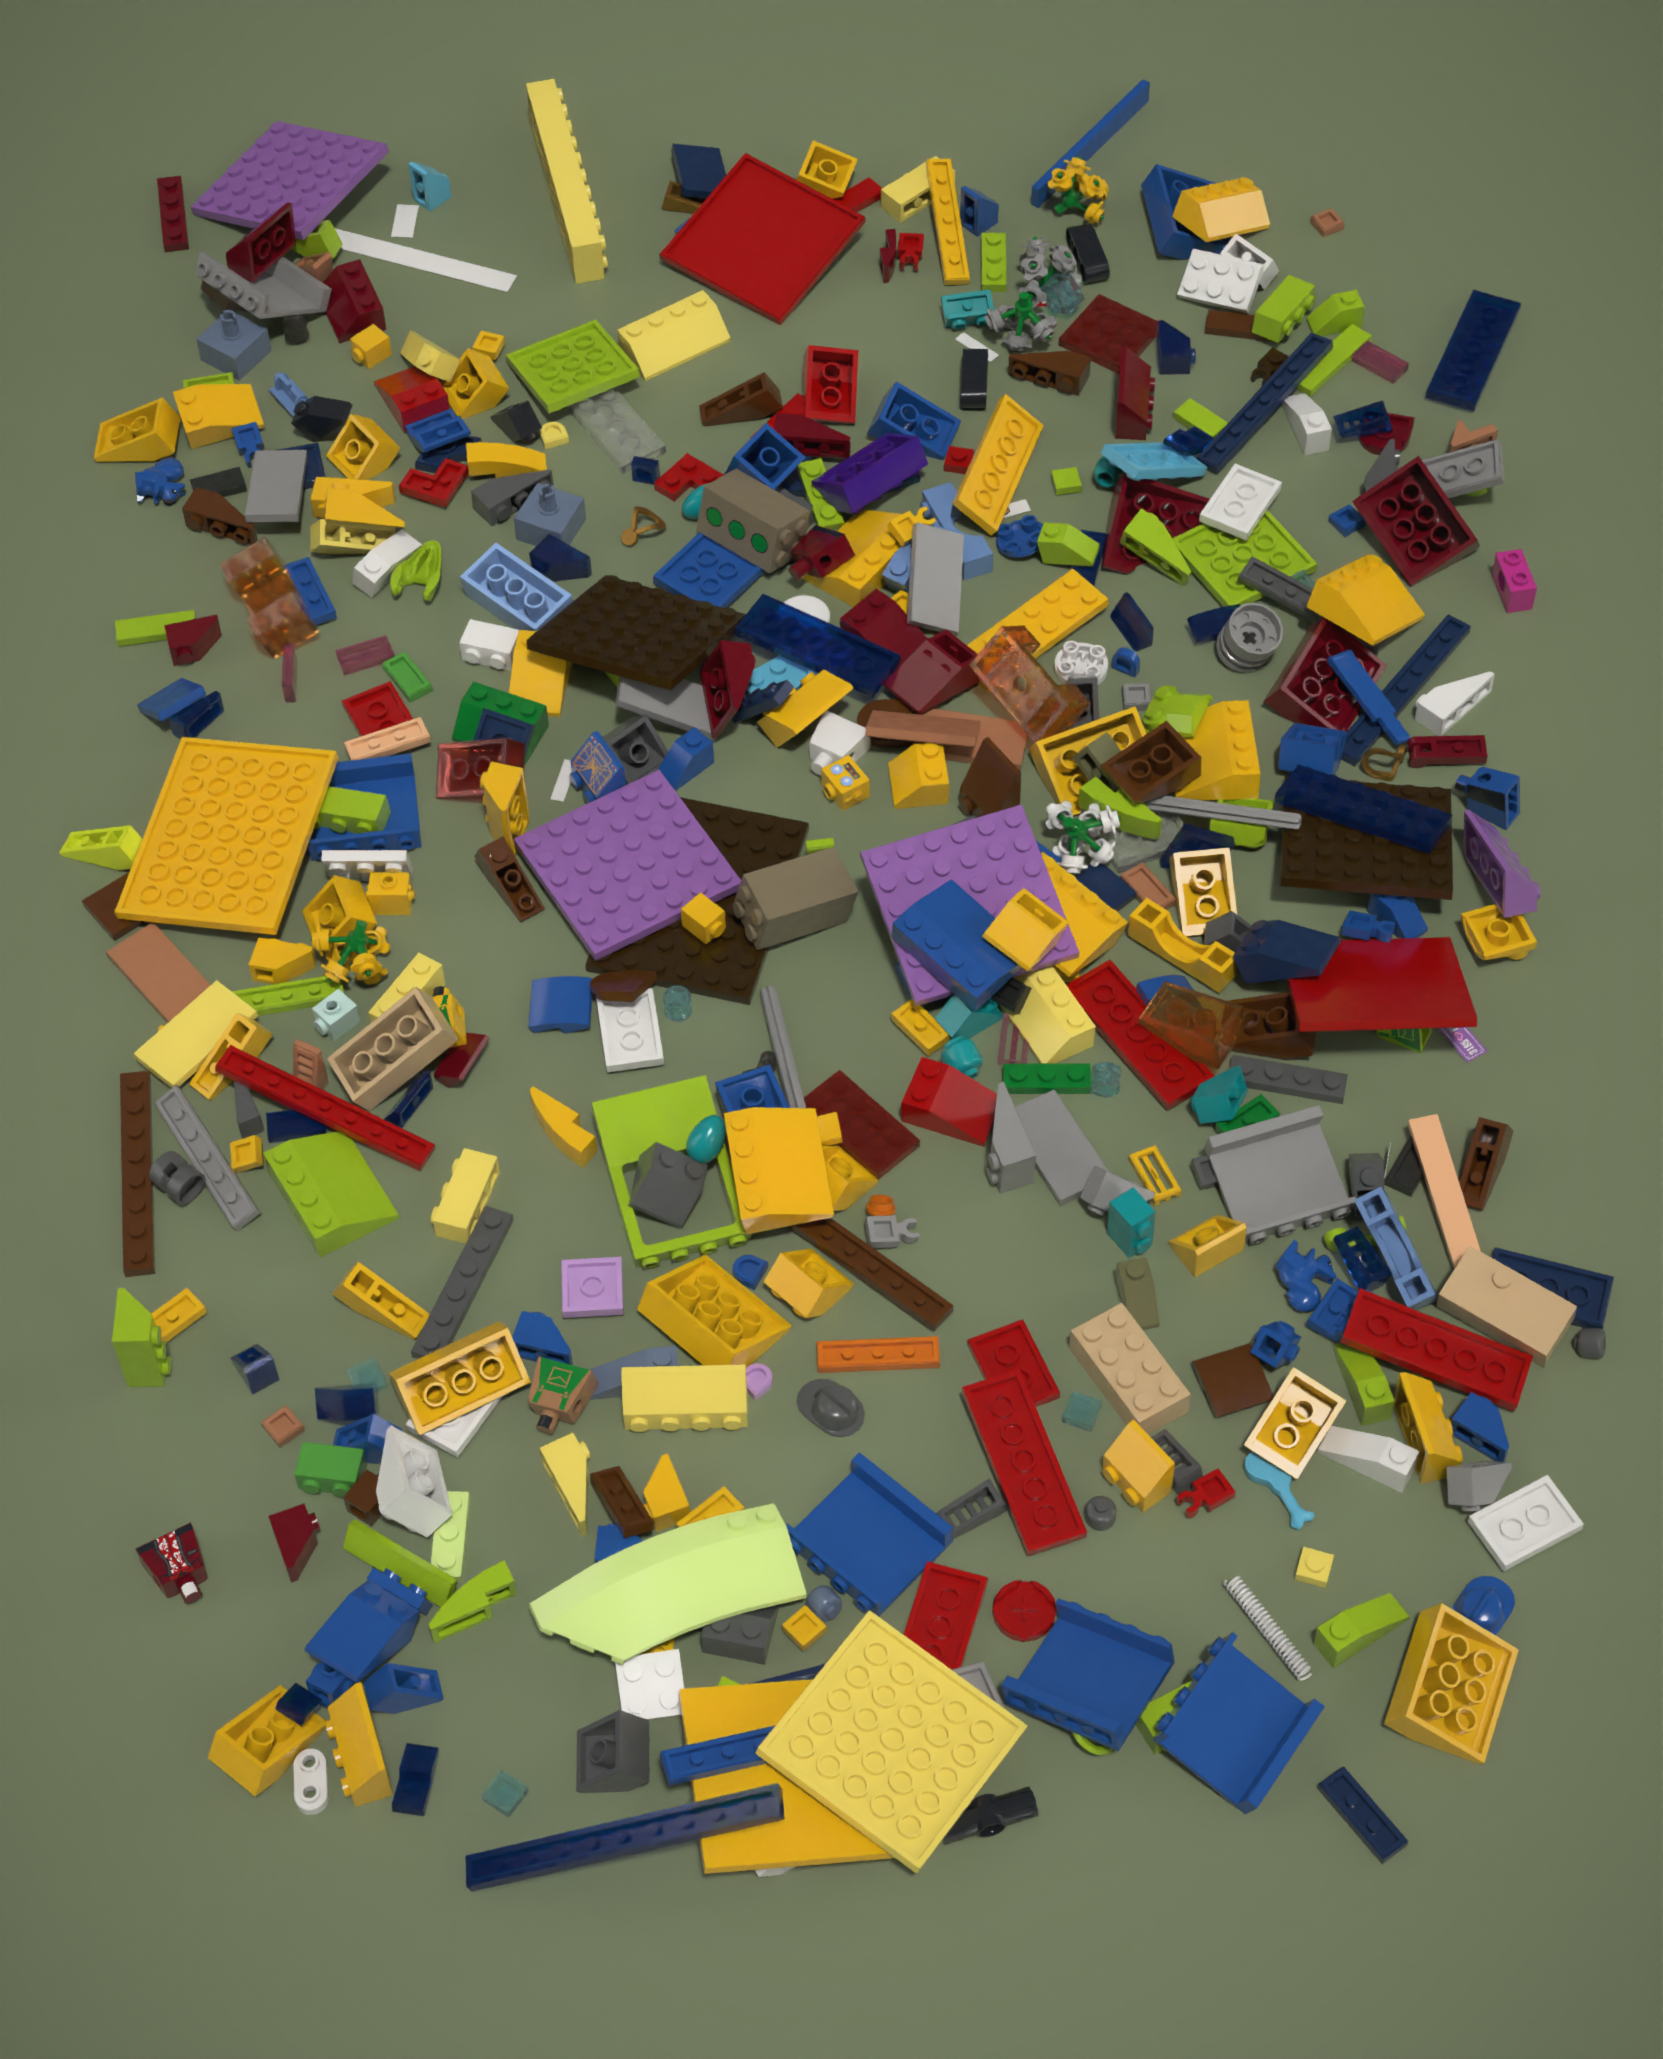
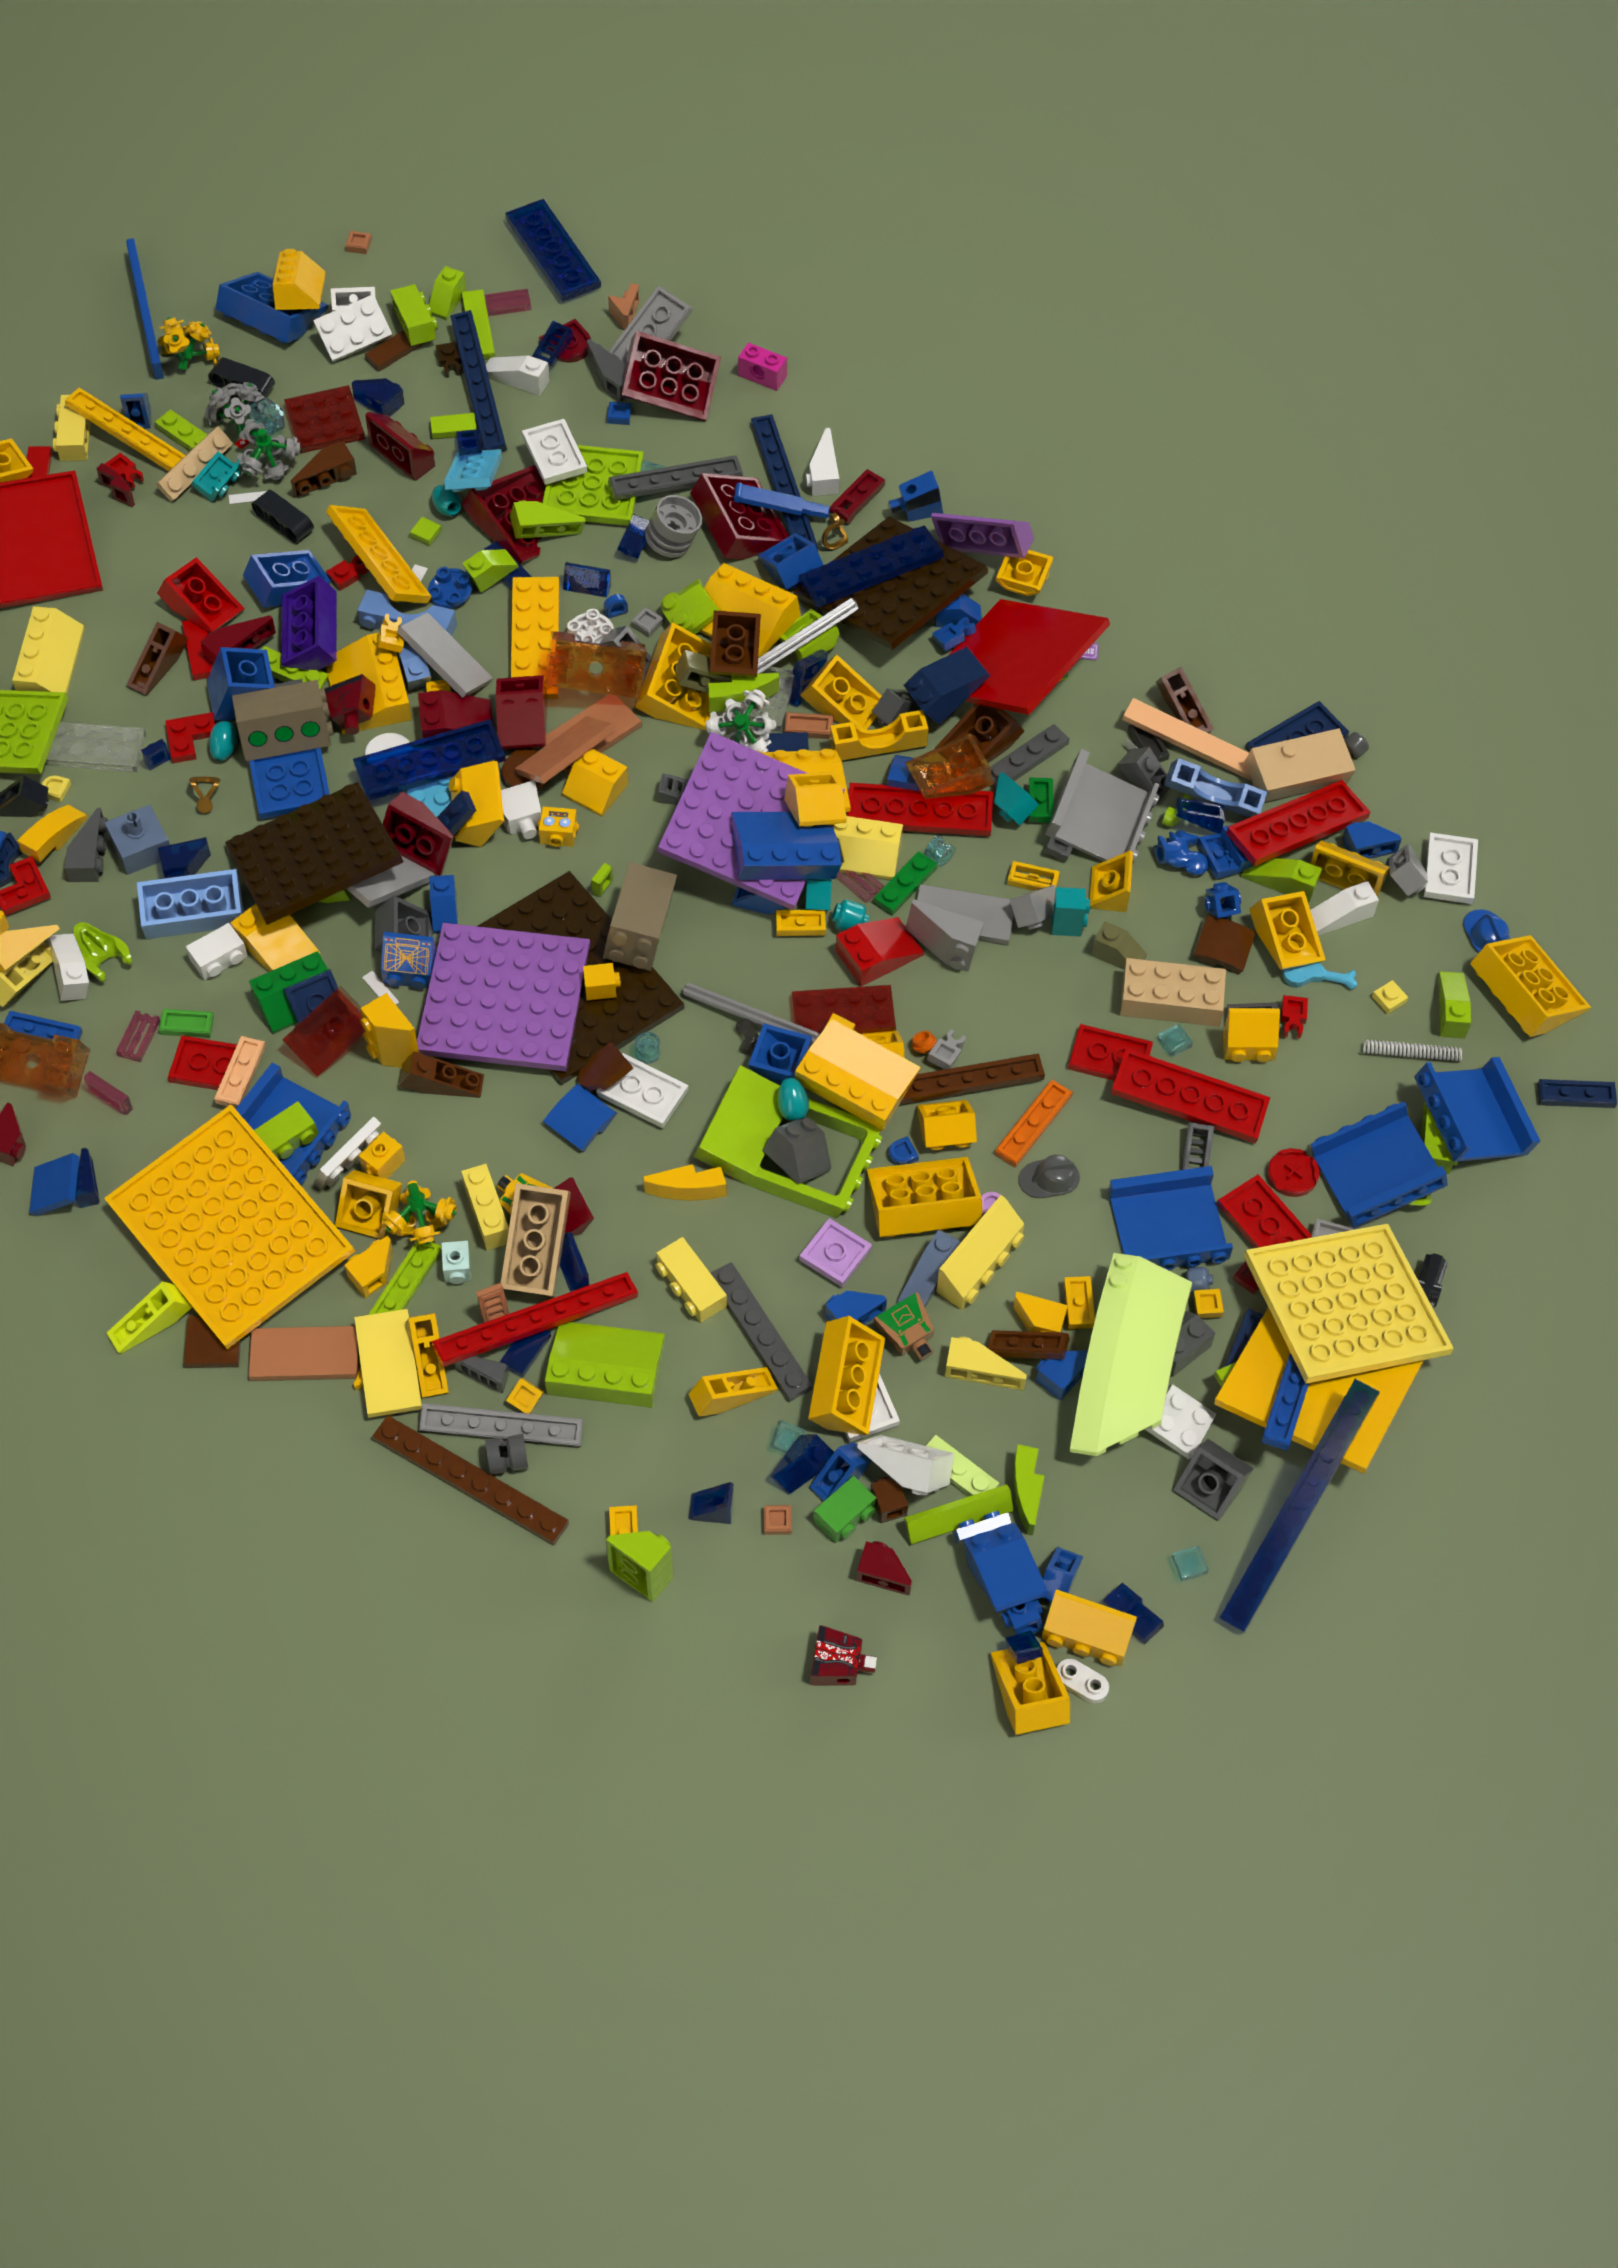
camera: 55 degrees left, 5 degrees up
(934, 286) = (186, 470): none -> tan plate
(990, 783) = (658, 745): reddish brown slope -> none
(1100, 1513) = (1258, 1081): dark grey piece -> none
(1365, 600) = (707, 446): yellow slope -> none

